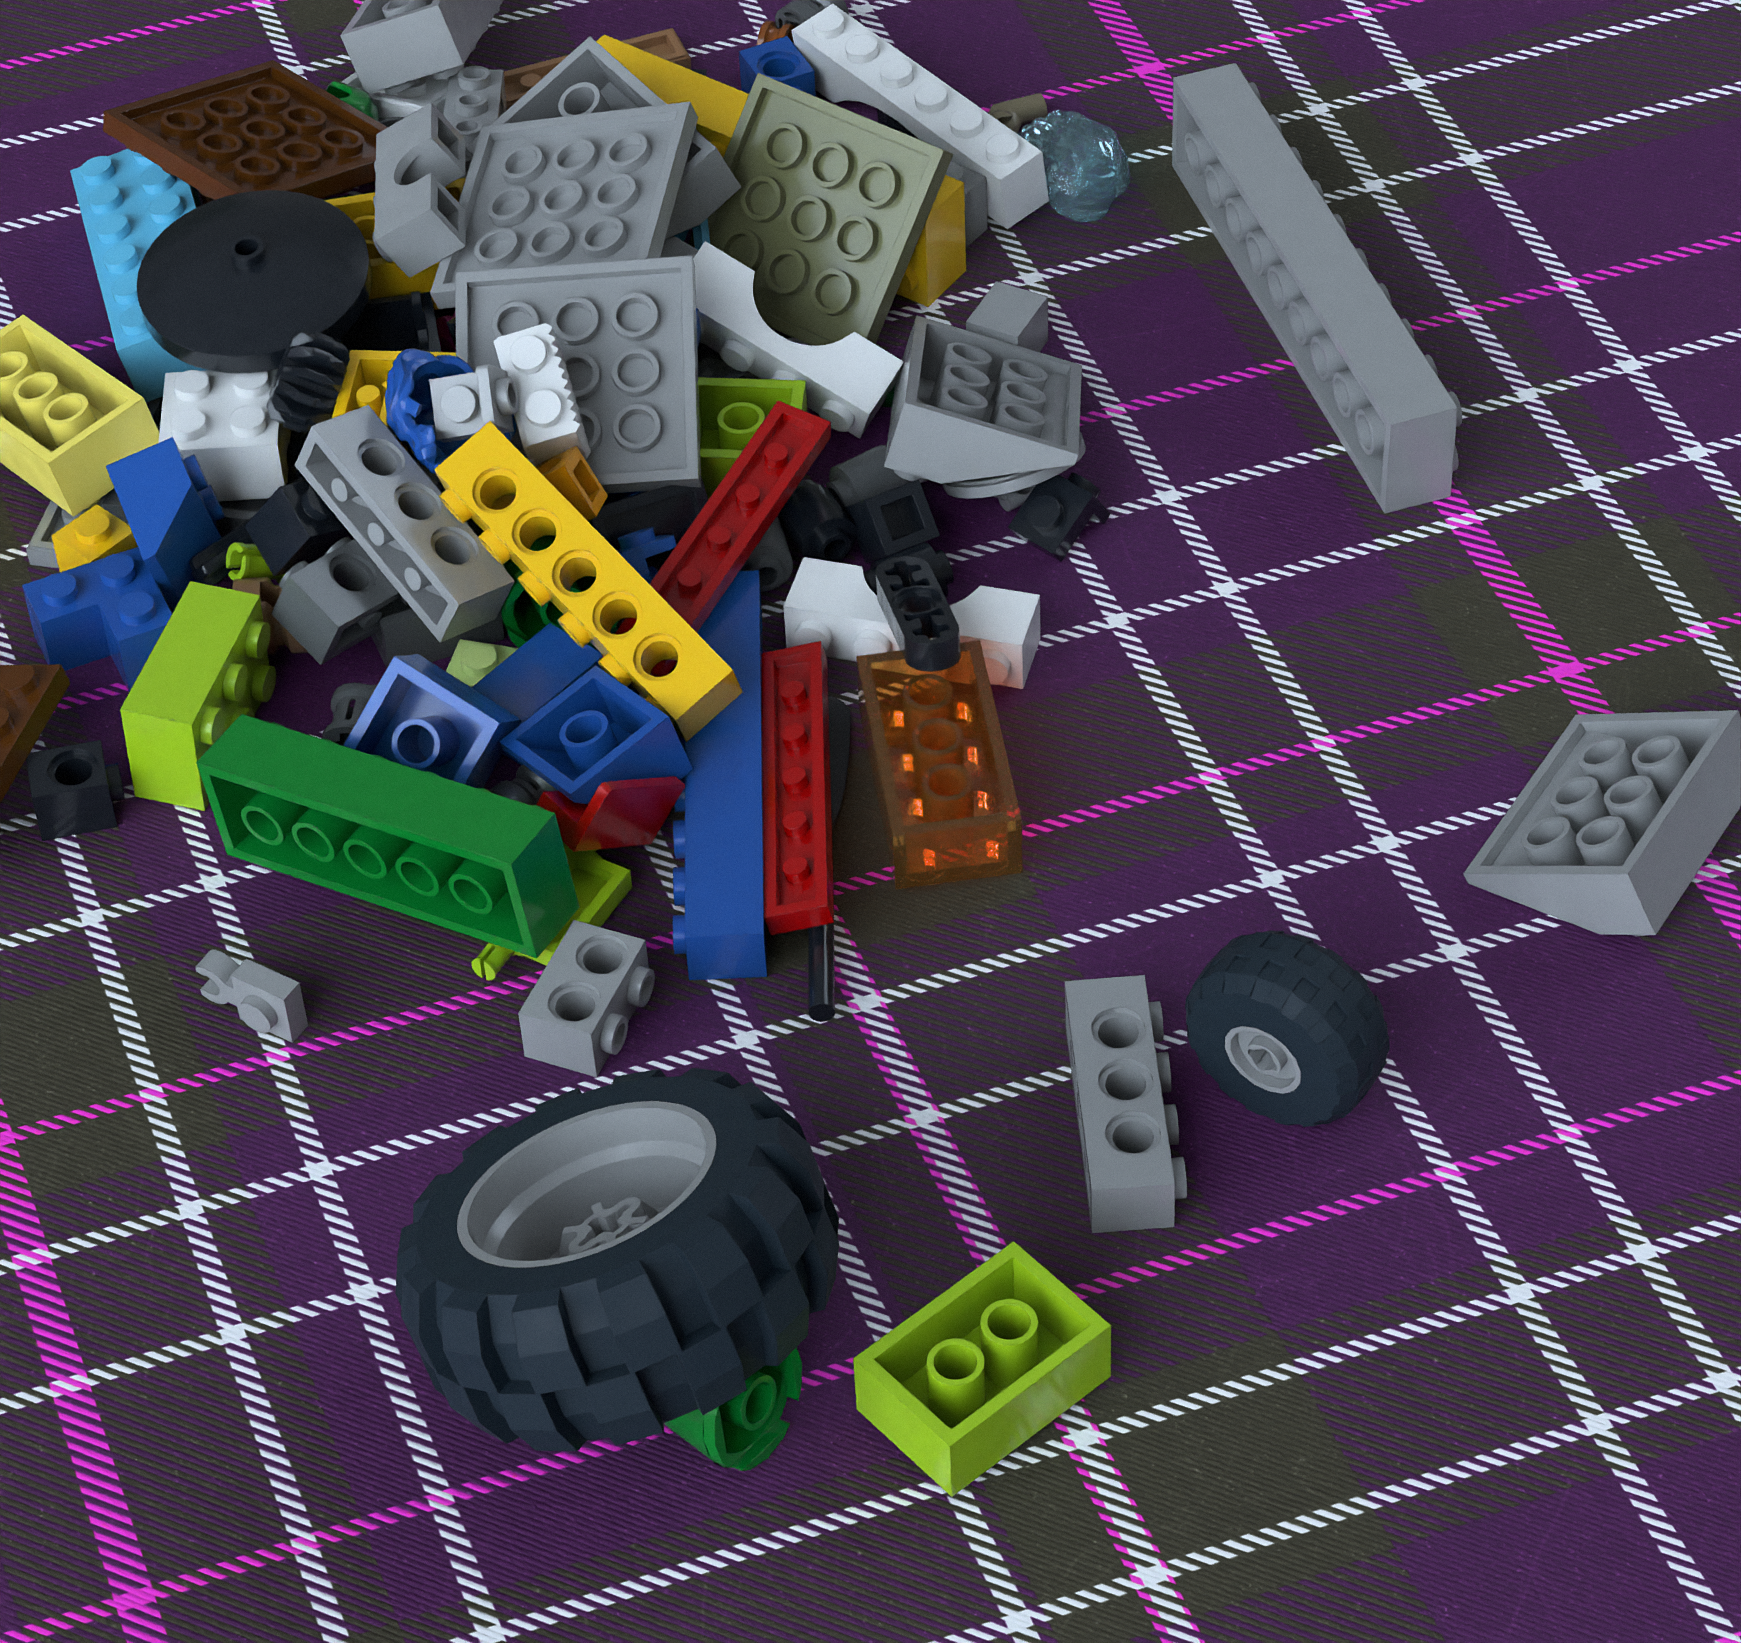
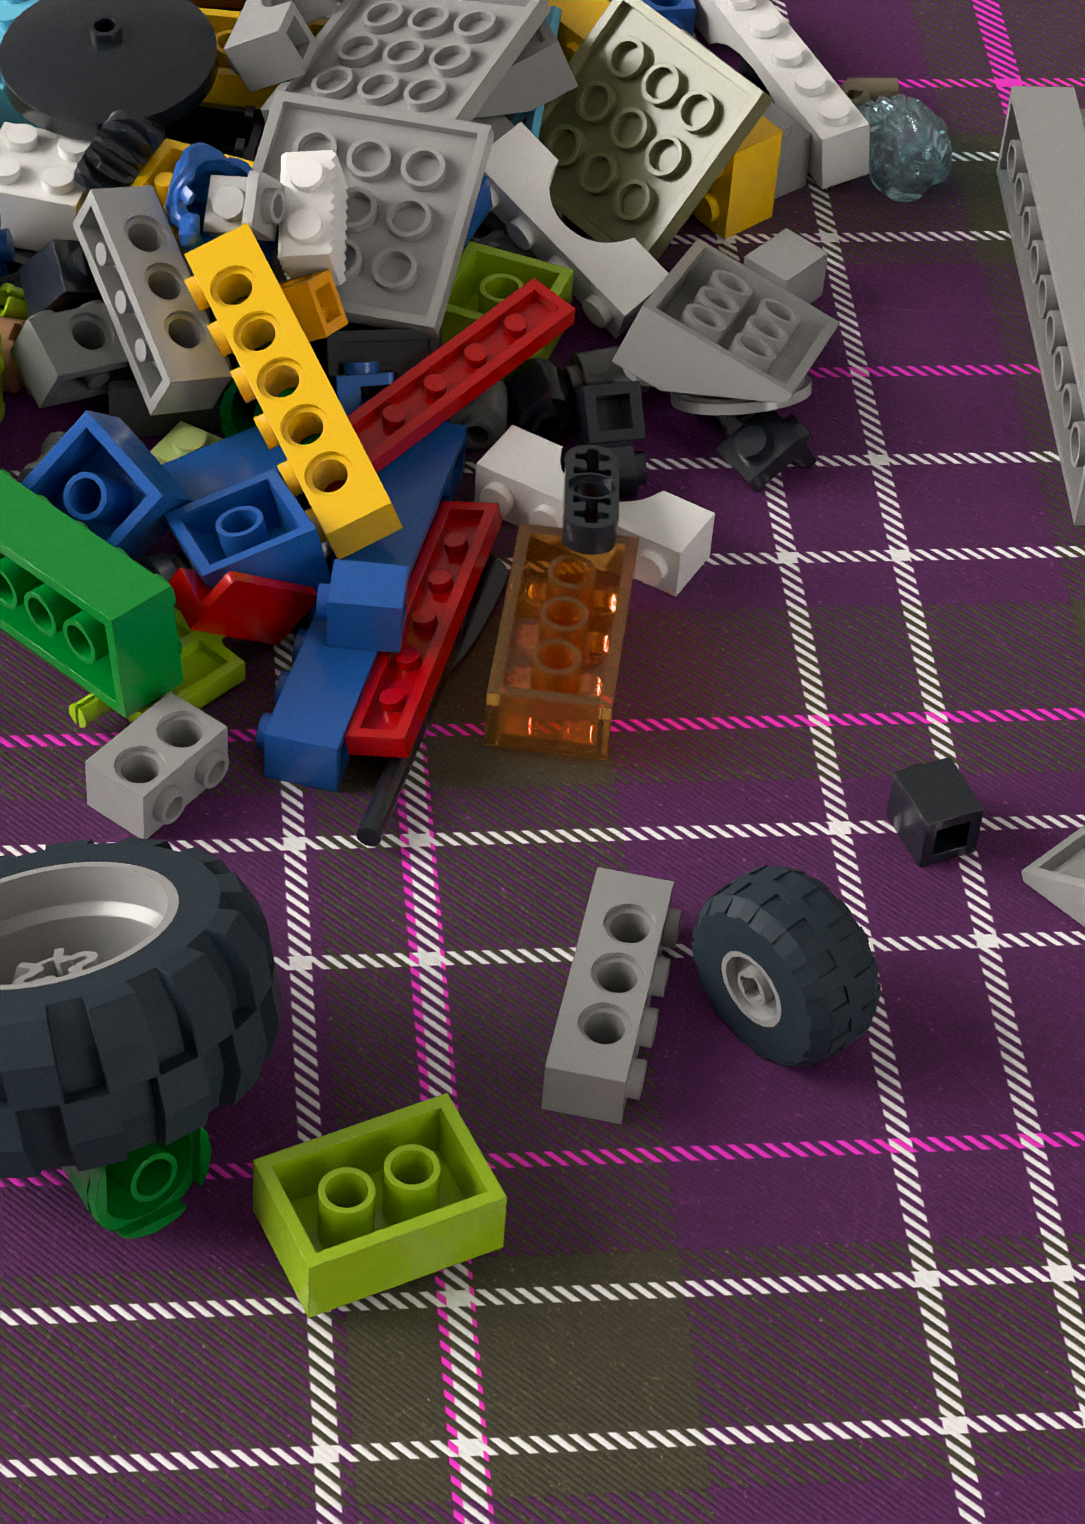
camera: 10 degrees right, 0 degrees up
(738, 781) = (364, 605): none -> blue brick
(1362, 837) = (934, 811): none -> black brick

